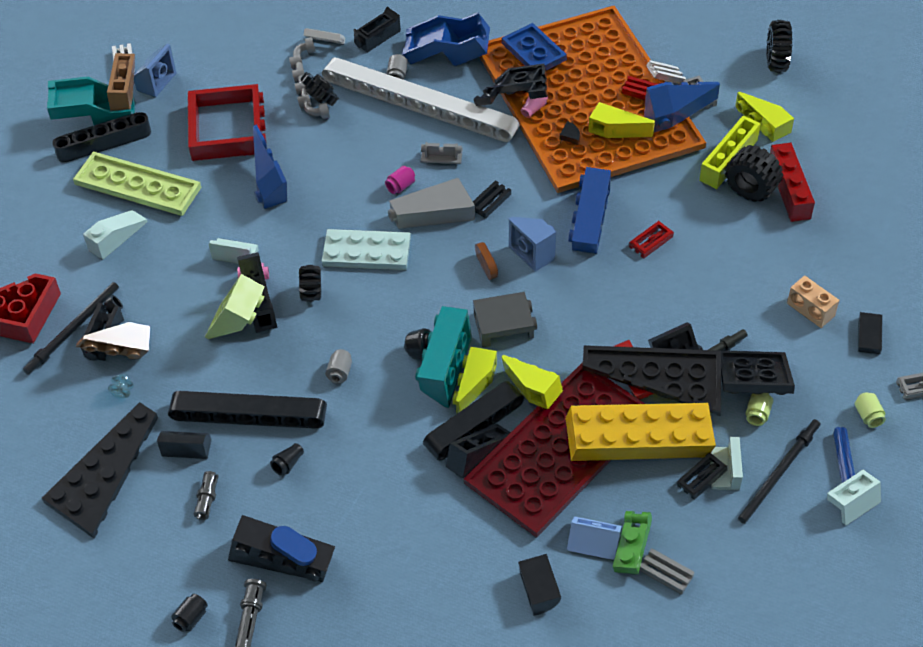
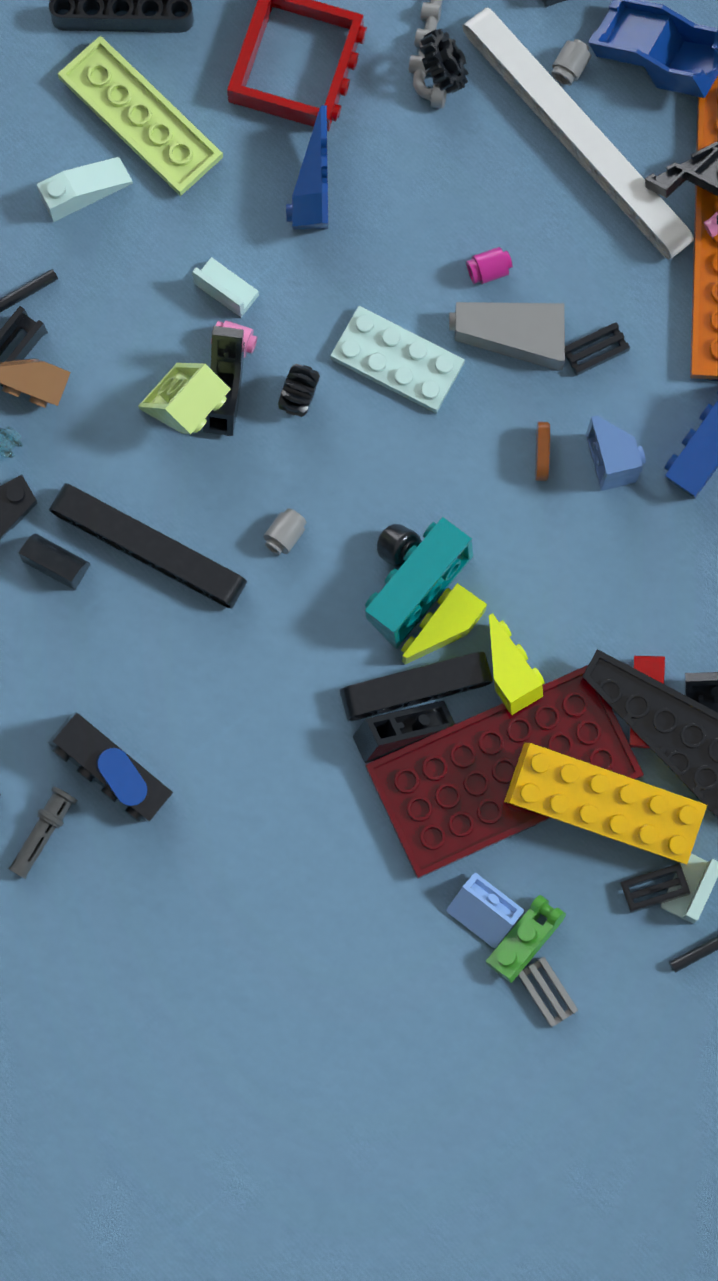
camera: 20 degrees right, 25 degrees up
(110, 302) = (40, 306): black hinge -> none
(206, 495) = (53, 645): dark grey pin -> none
(285, 460) = (168, 638): black cone -> none
(435, 154) = (565, 243): light grey hinge -> none
(503, 317) = (523, 552): dark grey panel -> none
(539, 584) = (389, 944): black brick -> none

